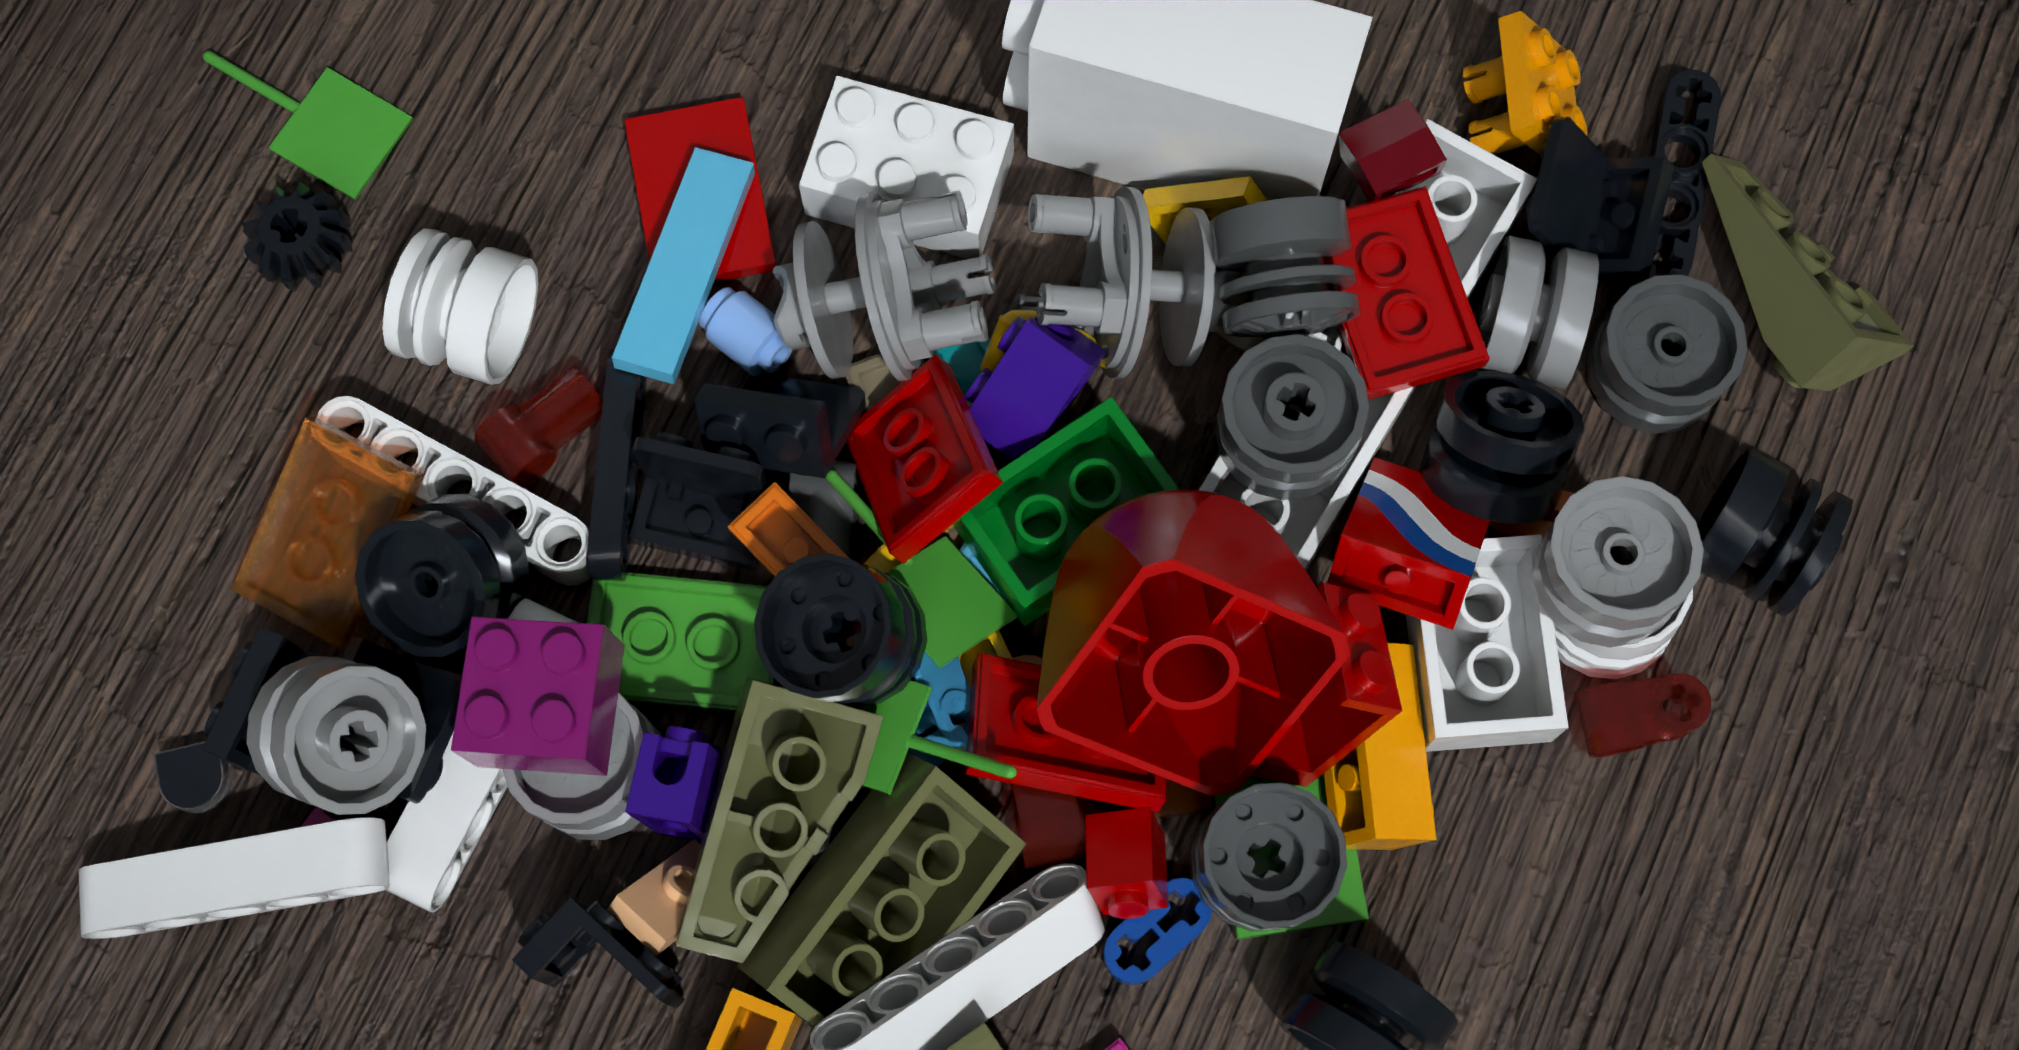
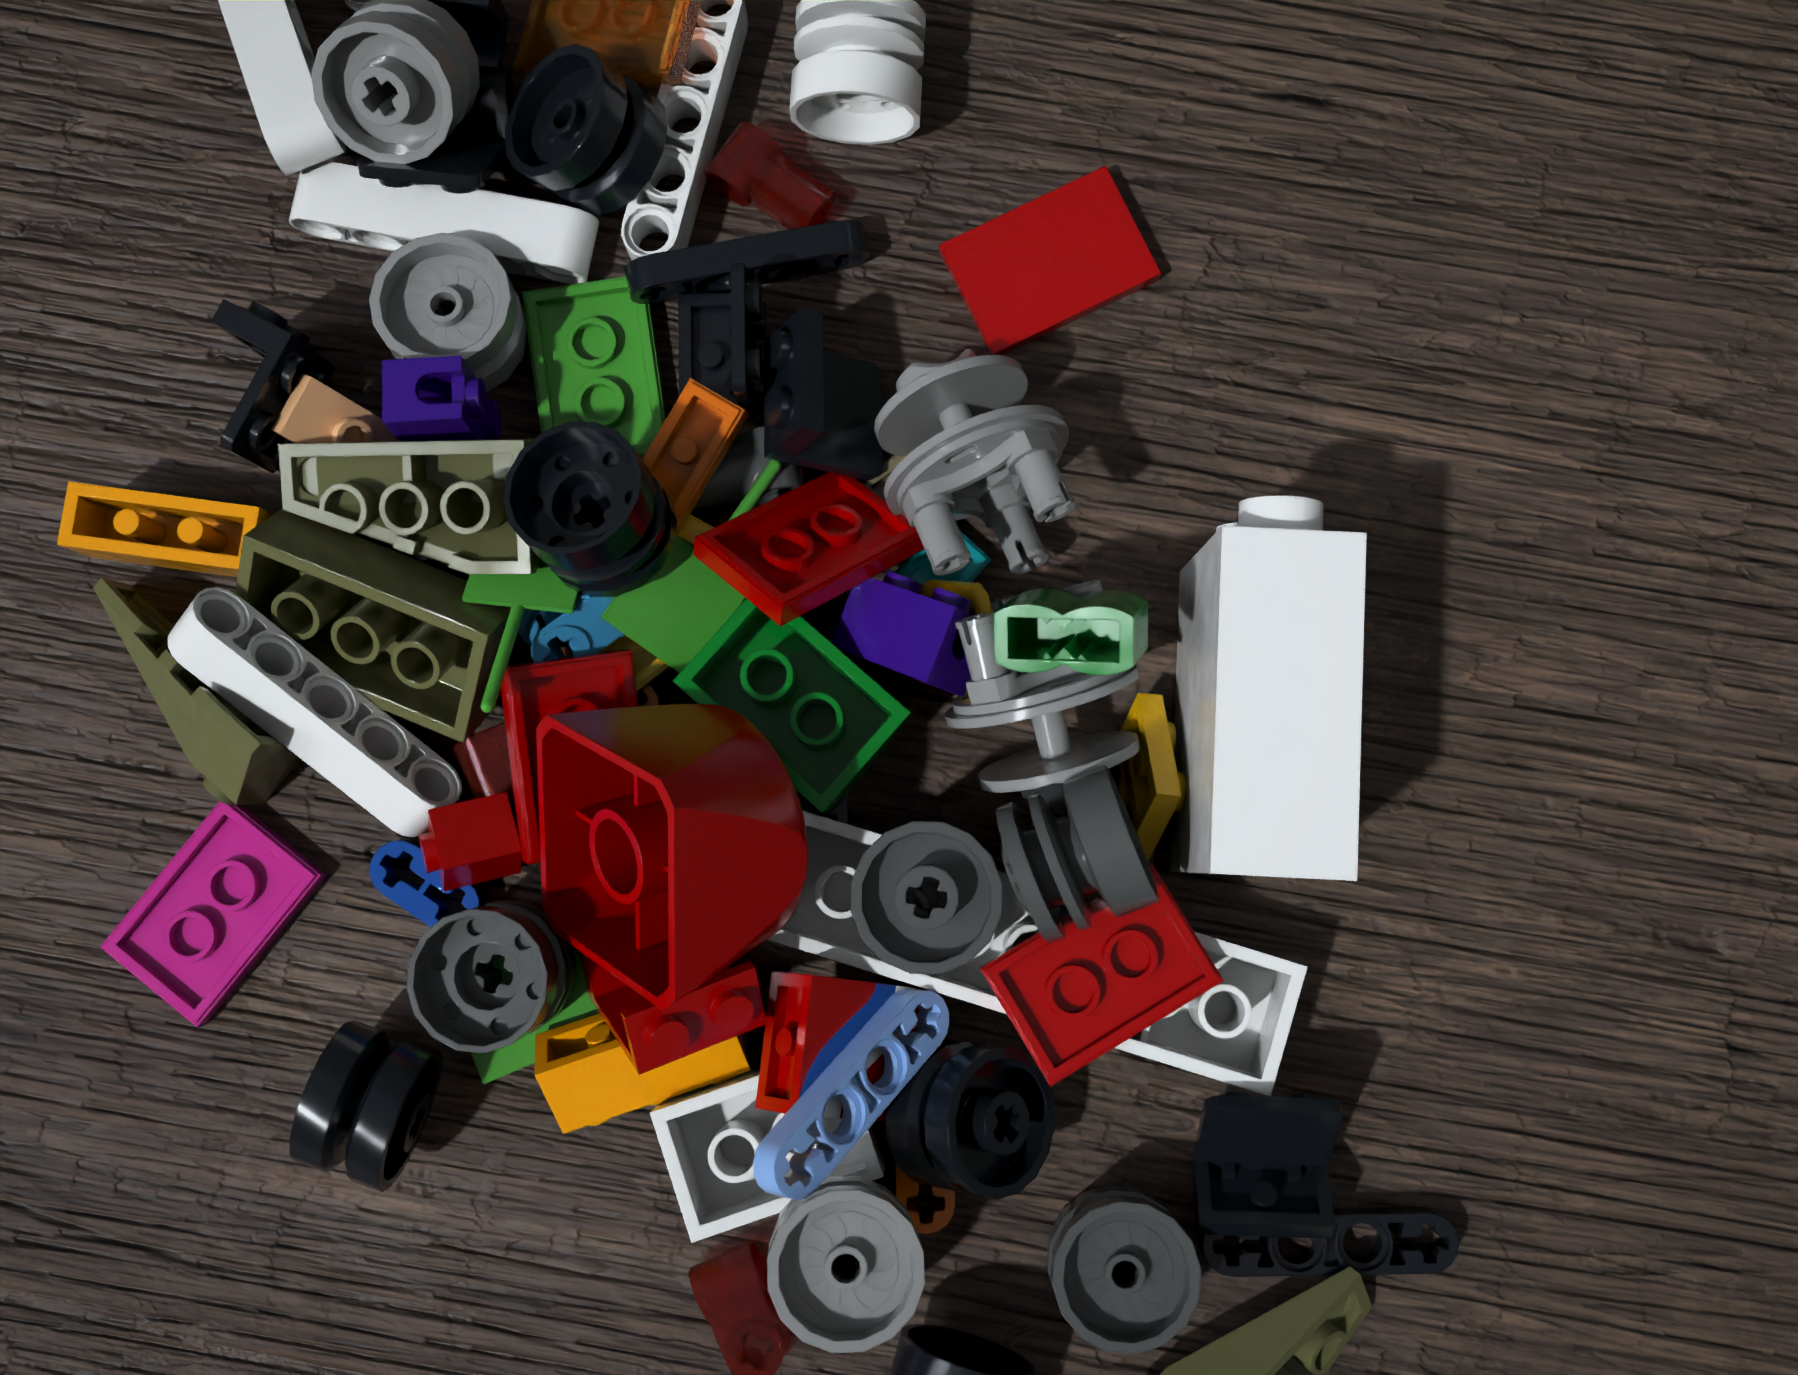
camera: 80 degrees right, 10 degrees up
(538, 696) = (468, 248): magenta brick -> none
(683, 266) = (959, 264): medium azure tile -> none
(744, 331) = (915, 335): light blue brick -> none
(910, 152) = (1126, 452): white brick -> none
(1084, 199) = (1088, 634): none -> green brick
(1391, 151) = (1253, 936): dark red piece -> none
(1460, 529) = (860, 1098): none -> light blue beam
(1537, 82) = (1383, 1077): light orange plate -> none
(1538, 311) = (1128, 1125): light grey wheel -> none

